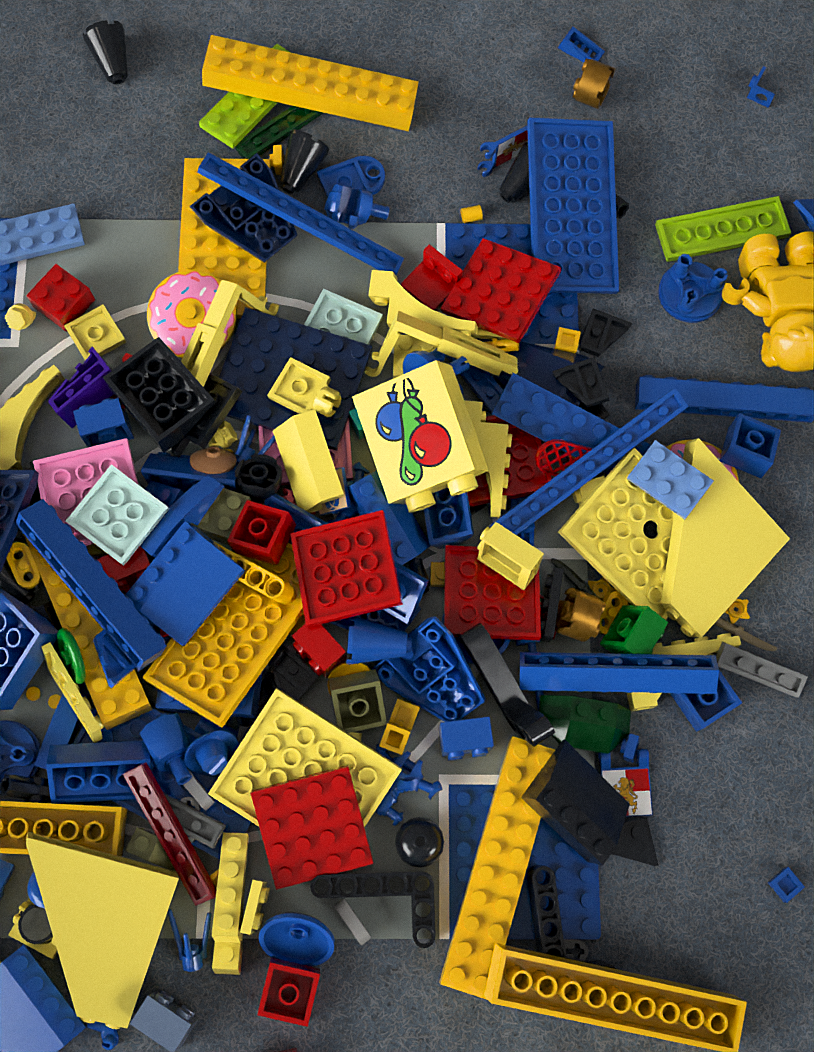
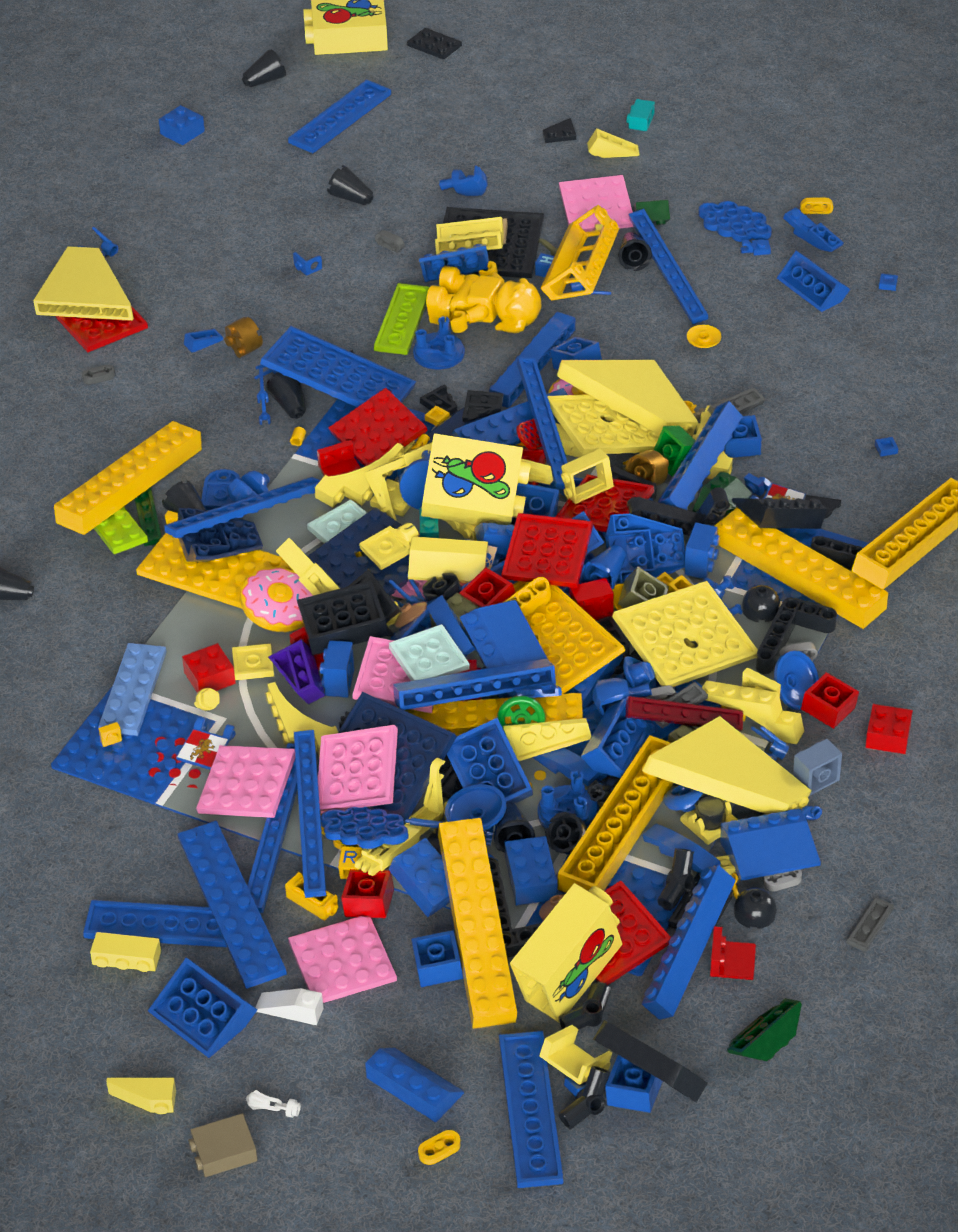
camera: 60 degrees left, 30 degrees down
(312, 827) = (719, 641): red plate -> none
(670, 479) = (581, 384): medium blue plate -> none

